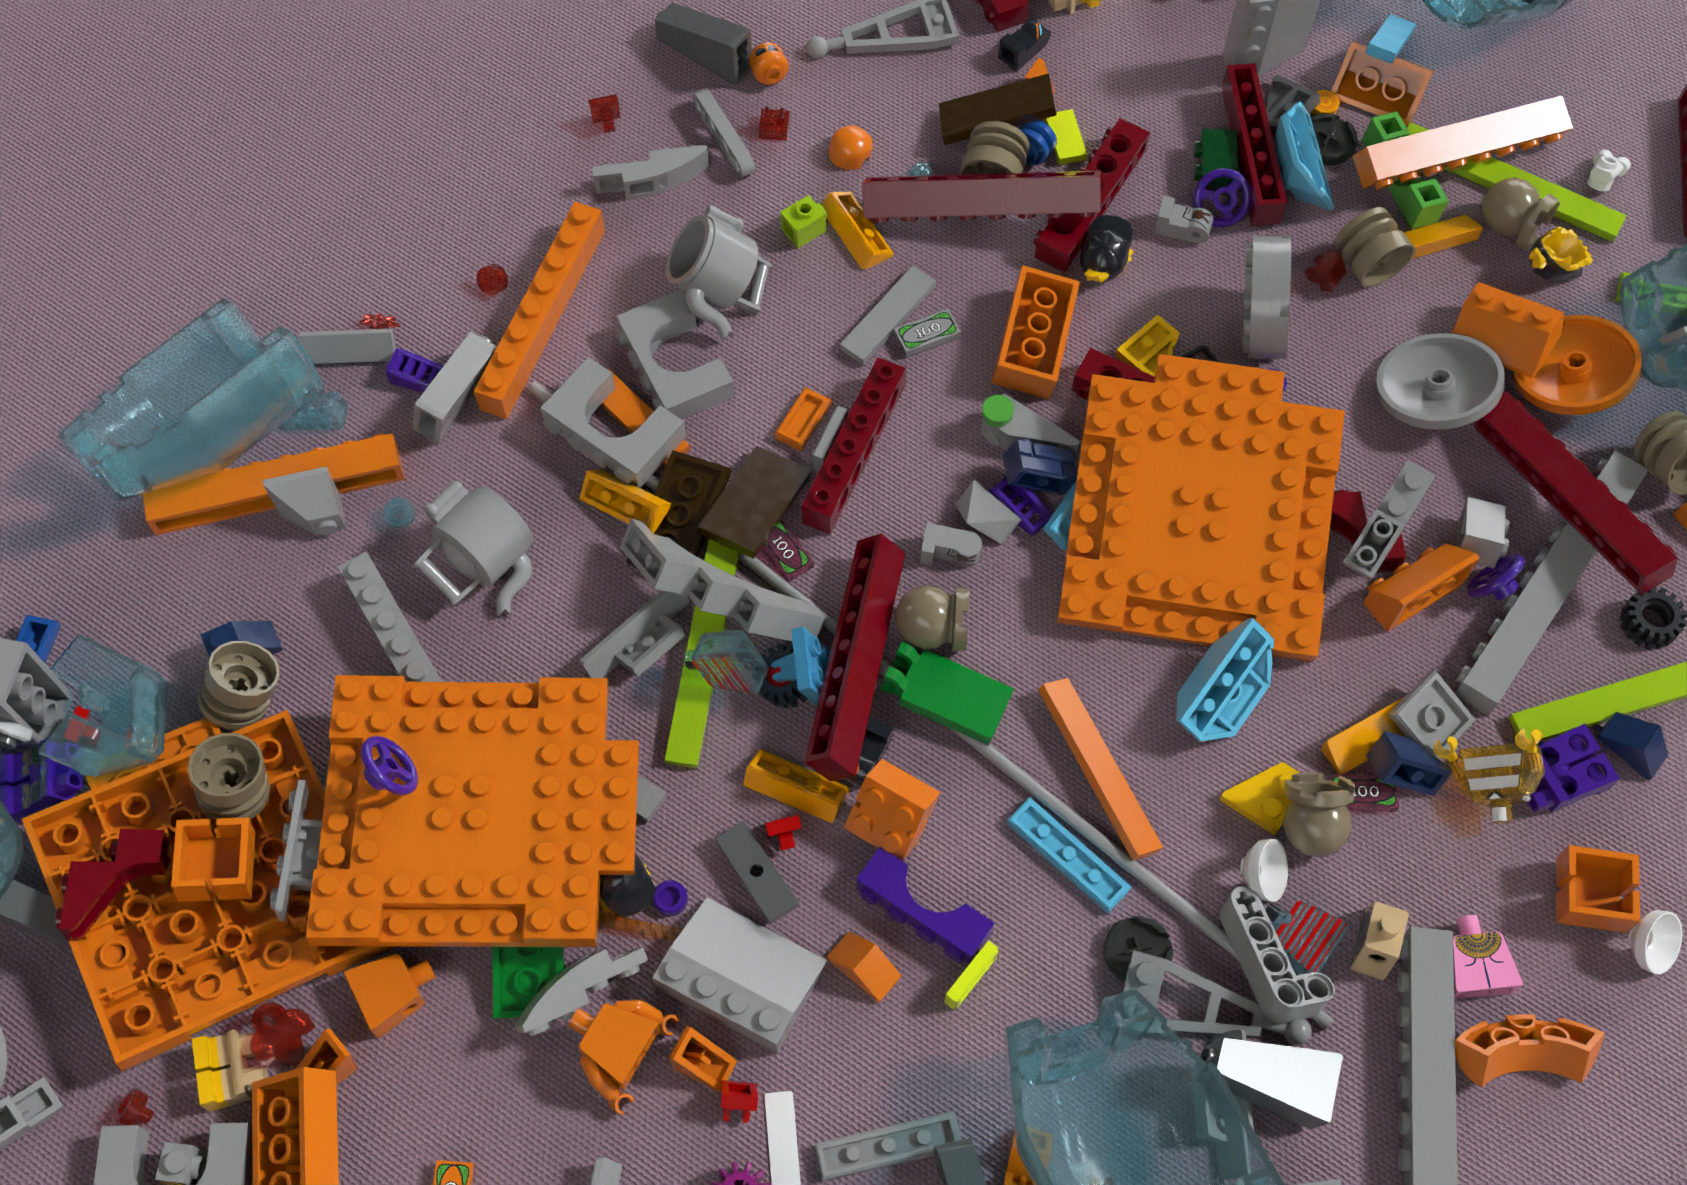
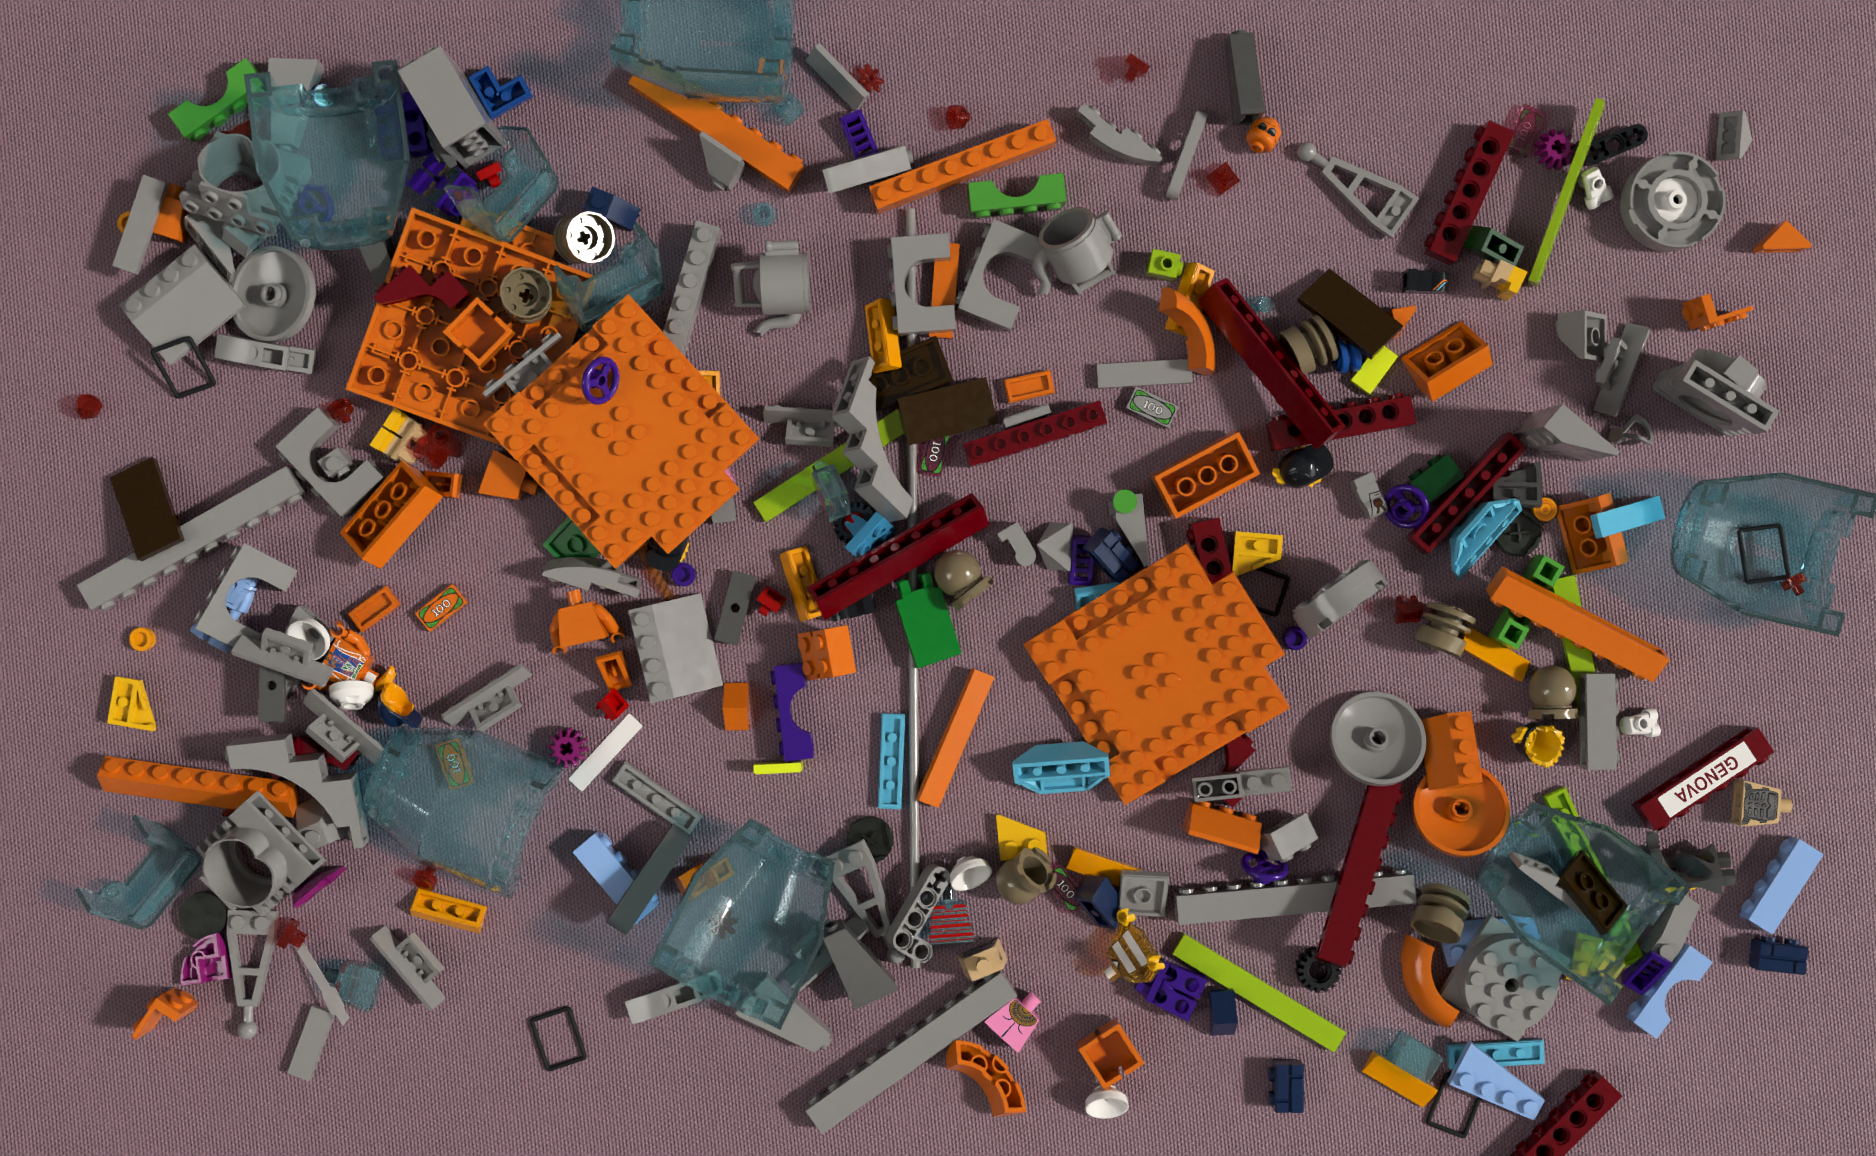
camera: 50 degrees right, 25 degrees up
(317, 656) = (635, 275): none -> clear light blue windscreen
(593, 312) = (987, 199): none -> bright green arch
(850, 147) = (1246, 242): orange hair -> none
(872, 228) = (1199, 337): none -> orange brick
(1114, 75) = (1447, 360): none -> orange slope
(1579, 194) = (1598, 721): none -> light grey brick

